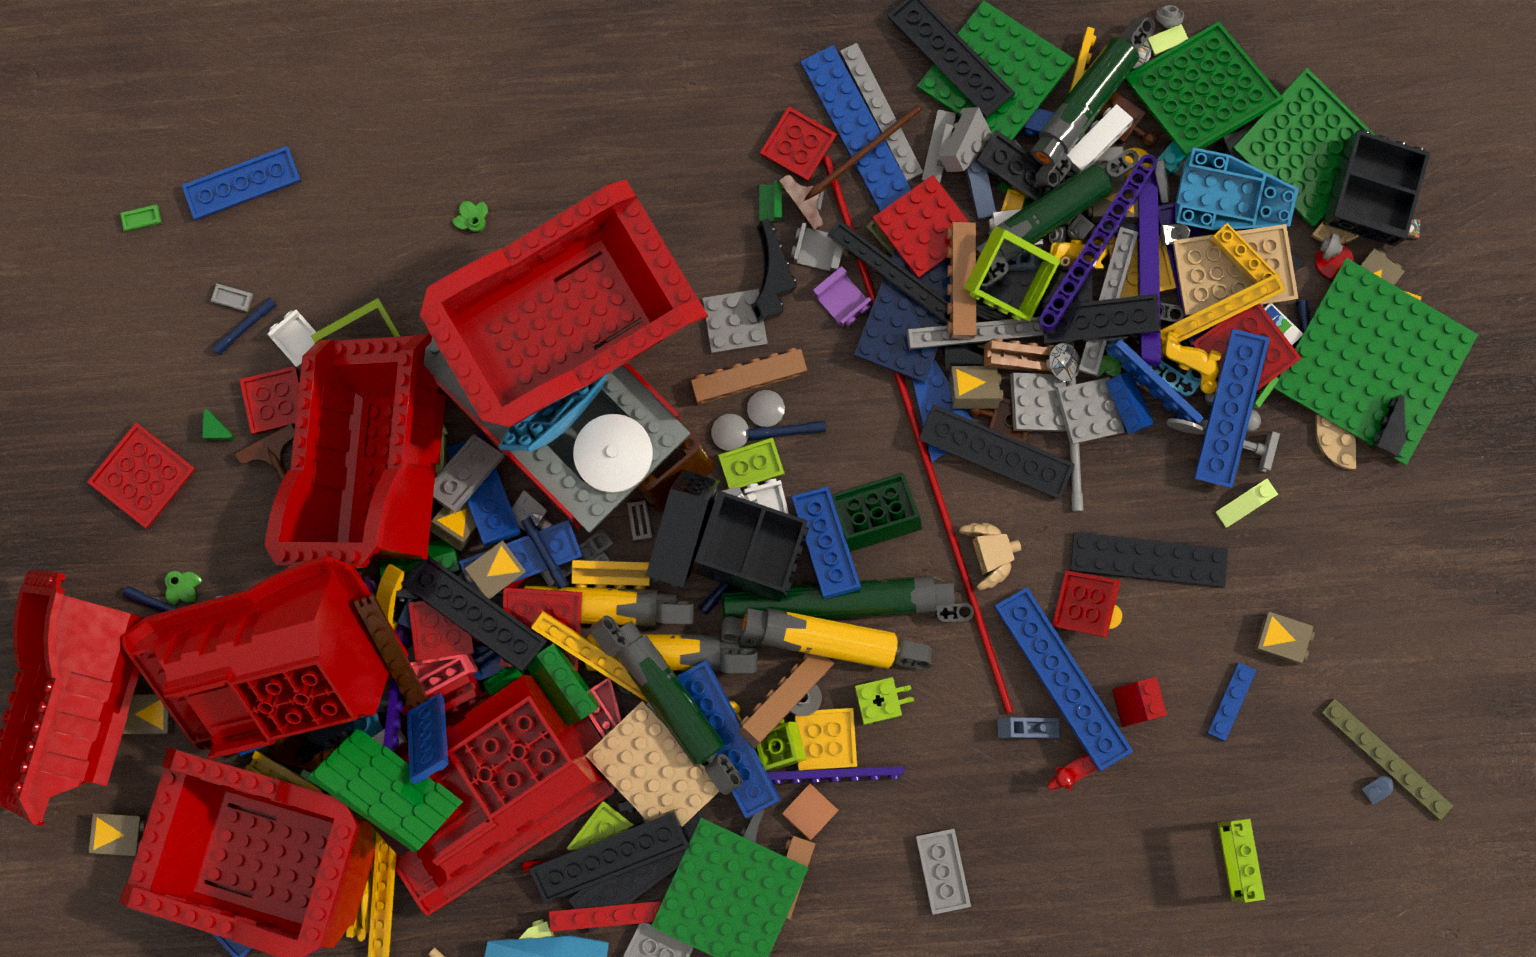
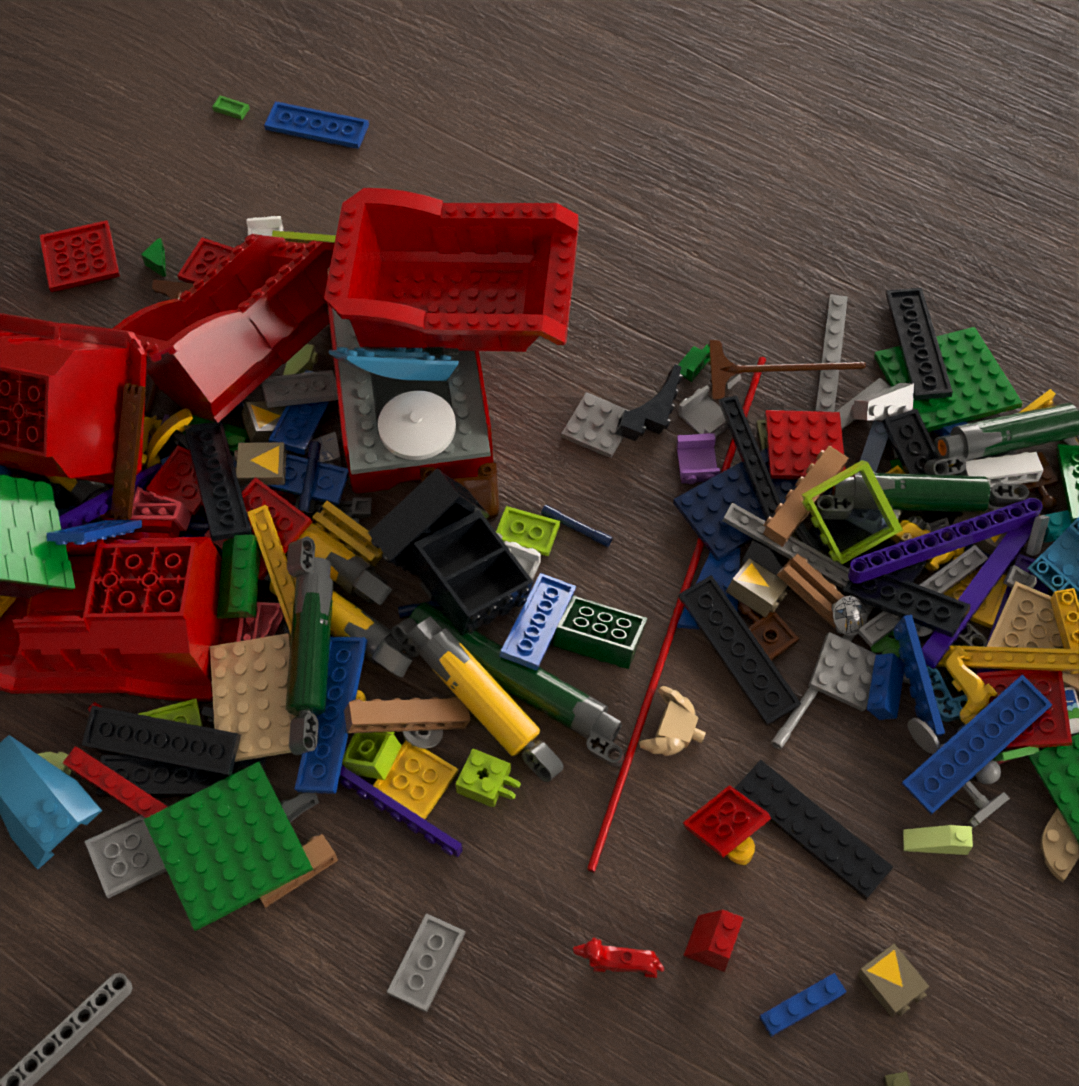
camera: 35 degrees right, 20 degrees down
(232, 297) = (245, 188): light grey tile -> none
(261, 311) = (216, 211): dark blue piece -> none
(730, 432) = (529, 497): light grey dish -> none
(749, 376) = (577, 467): medium nougat brick -> none
(765, 408) = (572, 500): light grey dish -> none
(798, 144) = (747, 335): red plate -> none
(810, 812) = (353, 829): nougat slope -> none
(855, 126) = (803, 347): blue plate -> none
(1028, 728) = (597, 892): sand blue slope -> none
(1036, 402) = (802, 634): light grey plate -> none
(1063, 679) = (658, 873): blue plate -> none

